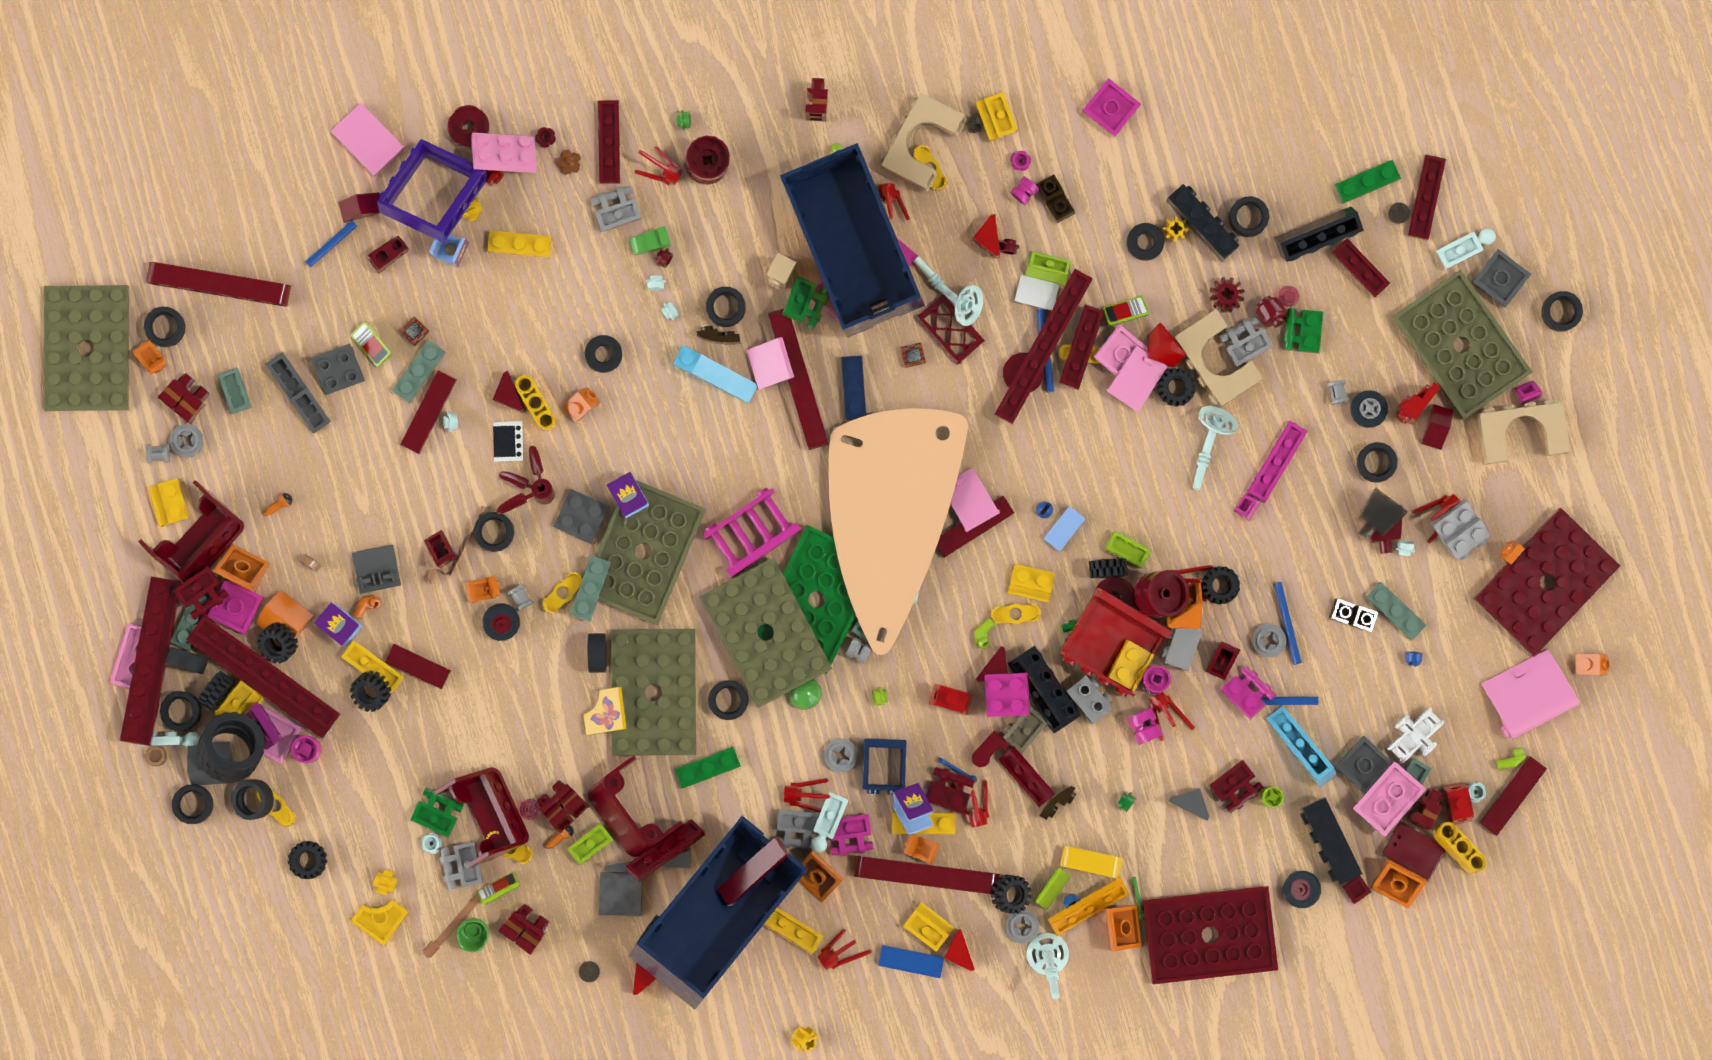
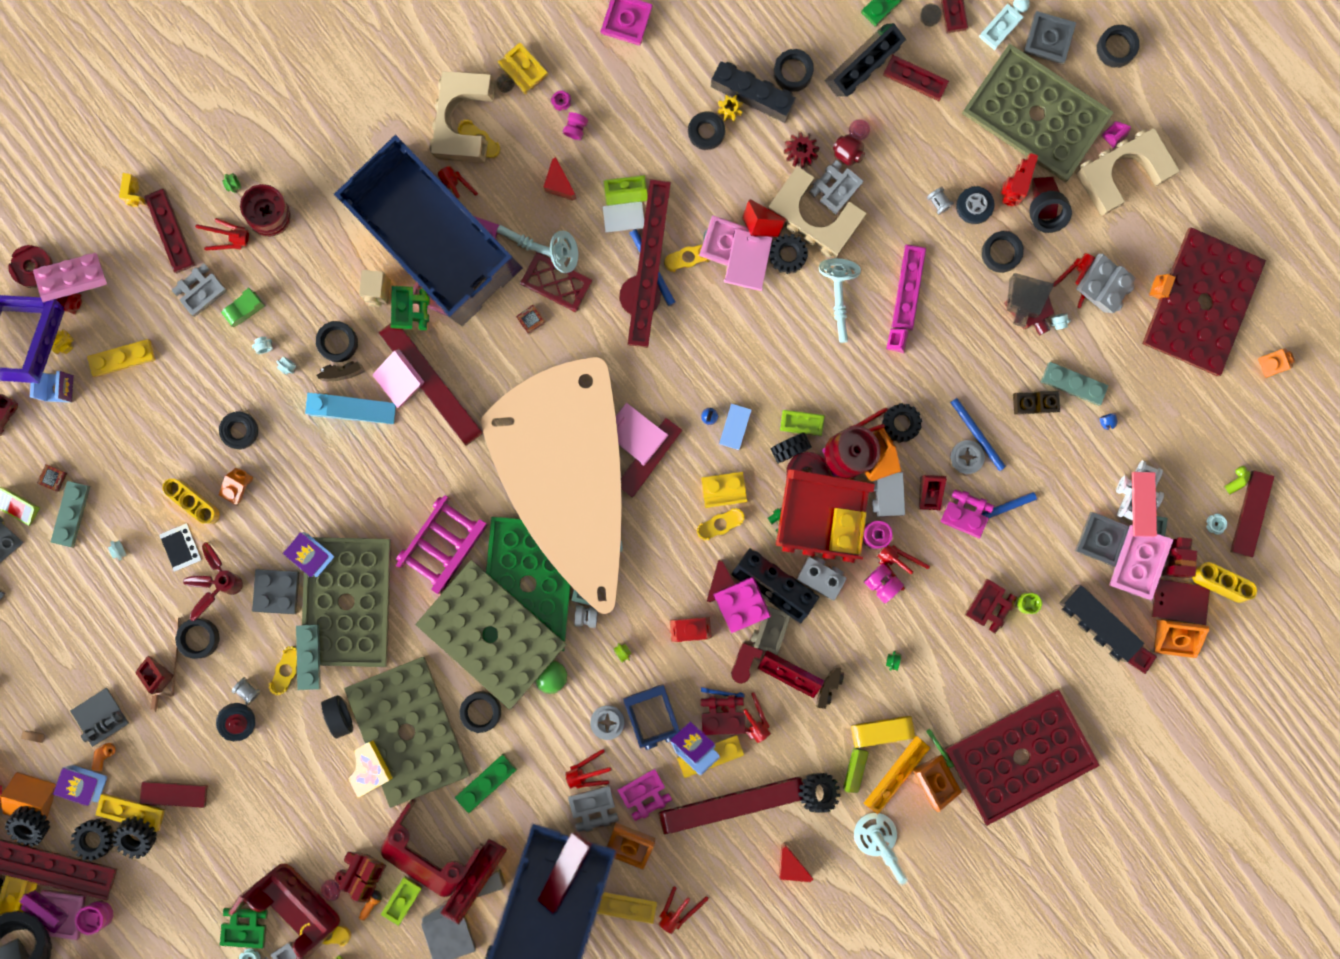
camera: 20 degrees left, 0 degrees up
(338, 688) = (80, 839): none -> black tyre
(428, 412) = (93, 549): dark red tile -> none
(483, 589) = (206, 697): orange bracket -> none
(507, 394) = (159, 503): dark red slope -> none
(539, 137) = (103, 244): dark red plate -> none
(568, 162) = (139, 264): dark orange plant -> none
(588, 88) = (128, 188): none -> yellow bracket
(664, 258) = (261, 318): dark red plate -> none
(819, 100) = (350, 120): dark red hips -> none
(828, 821) = (619, 792): light aqua plate -> none
(853, 387) = (486, 370): dark blue plate -> none
(911, 961) = (749, 893): blue tile -> none
(921, 848) = (717, 782): orange bracket -> none
(928, 926) = (753, 853): yellow plate -> none
(981, 634) = (695, 555): lime arm -> none
(1009, 247) = (581, 184): dark red plate -> none
(1029, 933) = (850, 821): light grey gear -> none
(1055, 198) = (607, 123): dark brown slope -> none
(1070, 899) = (877, 775): blue hinge -> none
(1081, 347) = (685, 250): dark red tile -> none
(1125, 311) = (713, 202): slope -> none
(1192, 802) = (955, 637): dark grey slope -> none
(1302, 746) = (1038, 544): medium azure slope -> none
(1302, 889) = (1091, 679): black wheel -> none
(1310, 331) = (891, 154): green plate -> none
(1412, 746) = (1144, 504): none -> coral tile
(1433, 455) = (1058, 222): none -> black tyre
(1458, 803) = (1205, 541): red torso -> none
(1532, 697) = (1234, 416): bright pink door -> none

